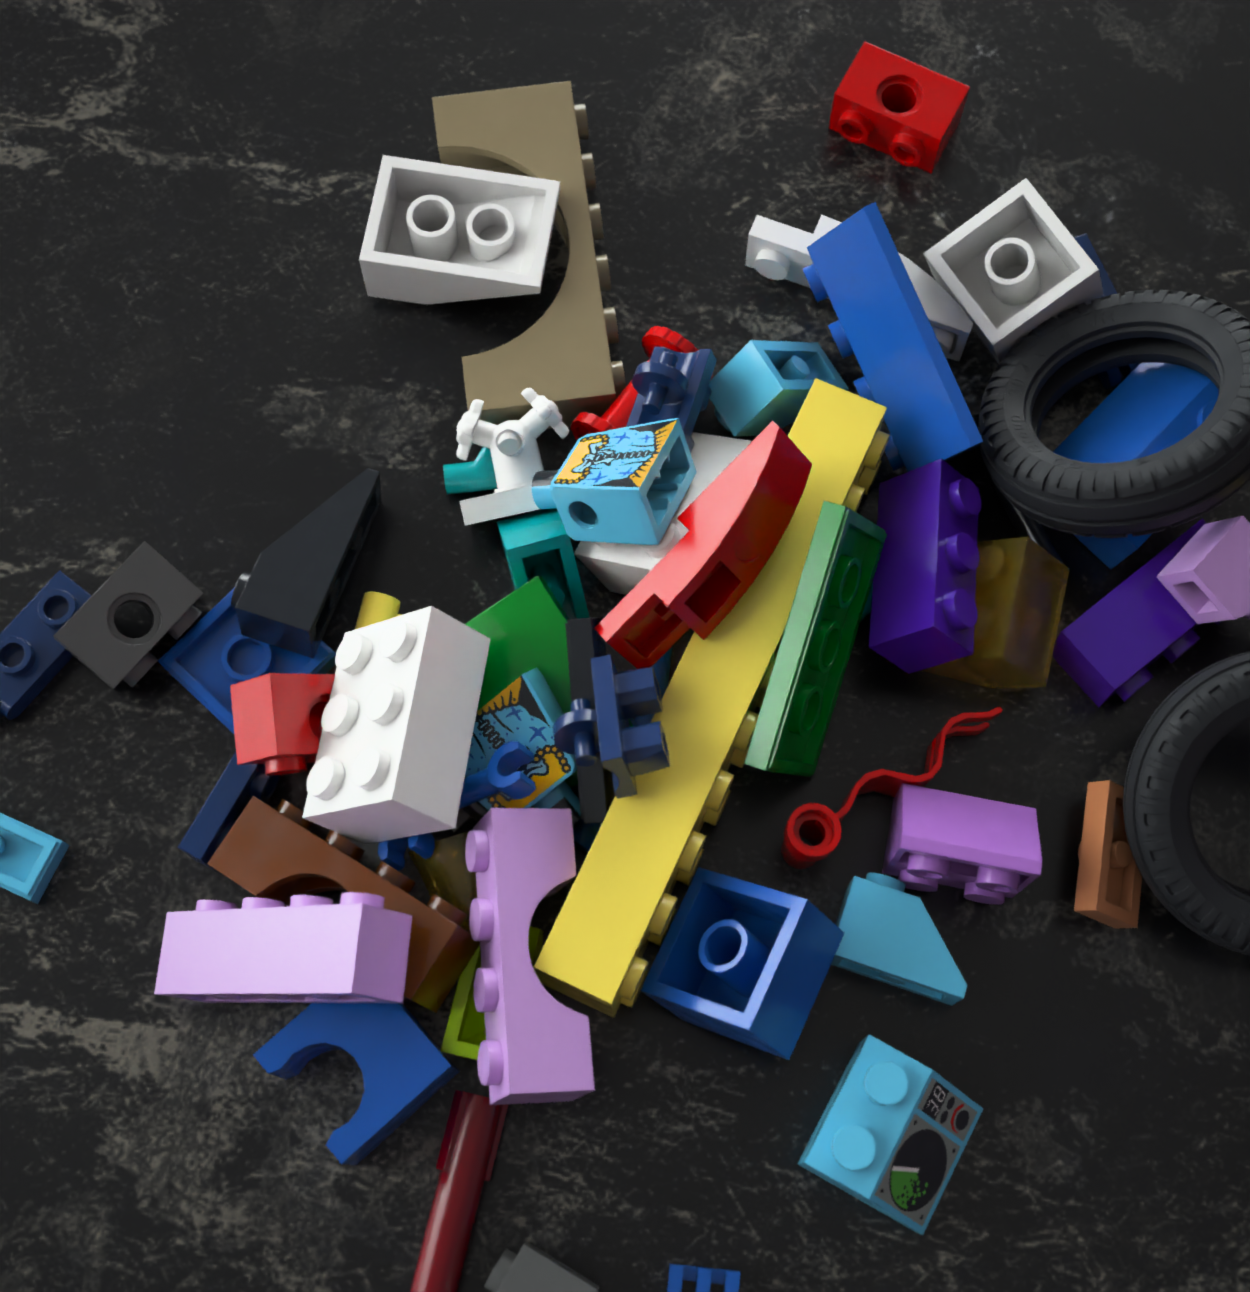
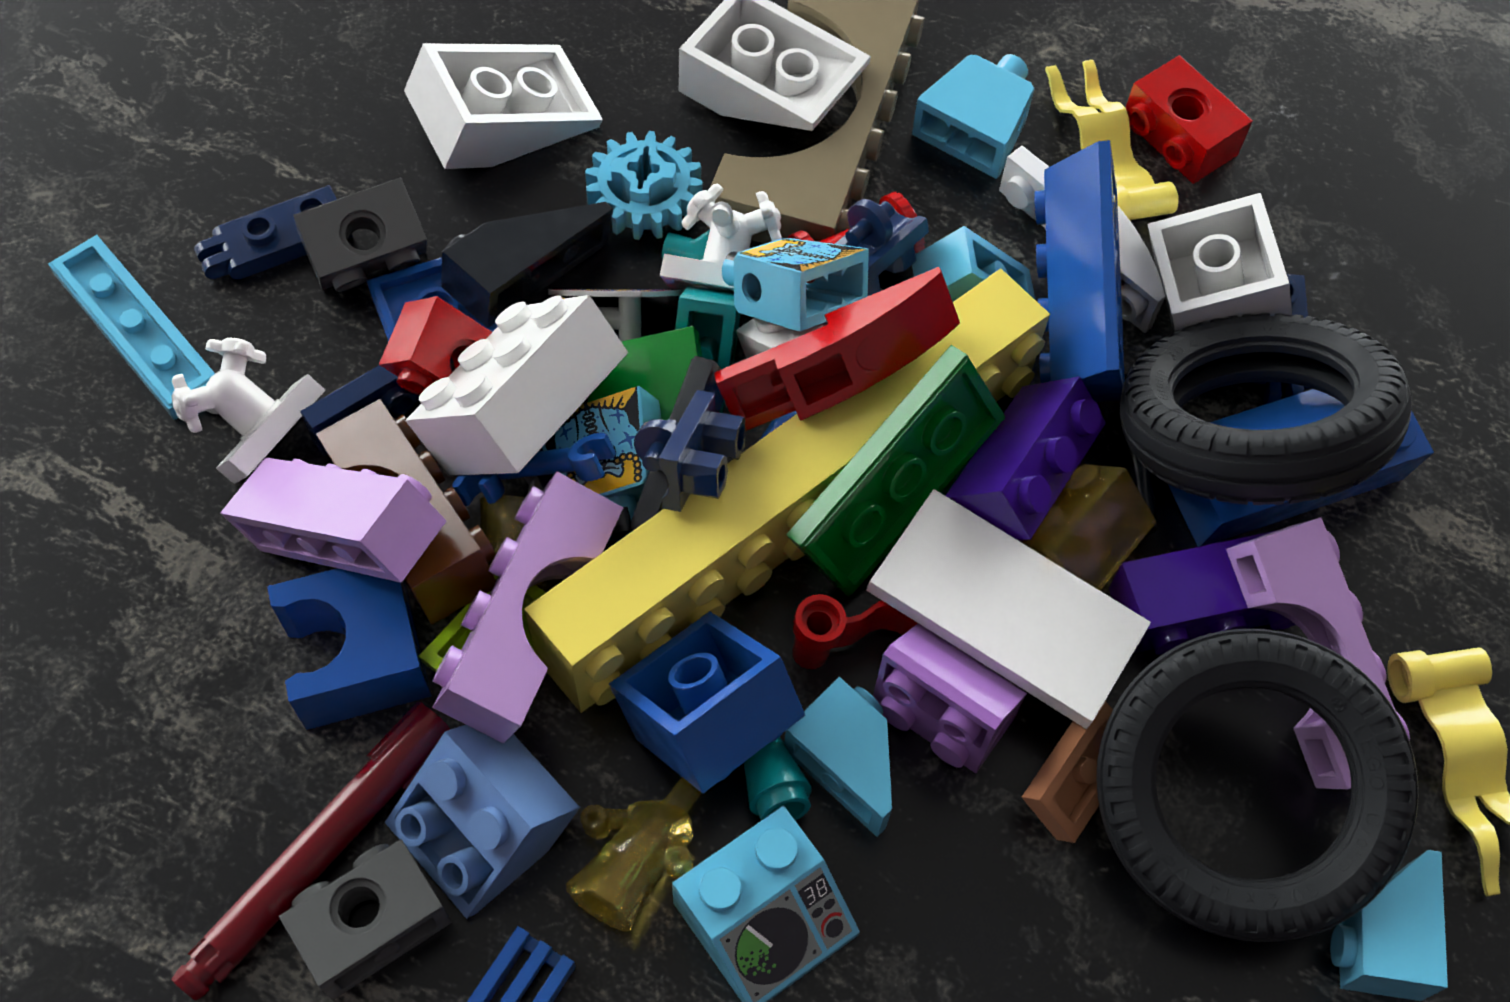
camera: 20 degrees right, 10 degrees down
(137, 870) = (243, 405): none -> white piece
(187, 394) = (497, 101): none -> white slope
(414, 403) = (644, 183): none -> medium azure gear
(434, 573) = (628, 313): none -> light grey shield
(578, 1177) = (480, 815): none -> medium blue slope
(688, 188) = (976, 111): none -> medium azure torso
(745, 1149) = (631, 863): none -> clear yellow piece
(830, 168) = (1135, 187): none -> light yellow flag
(844, 1009) = (776, 781): none -> teal cone
(981, 731) = (1009, 608): none -> white tile

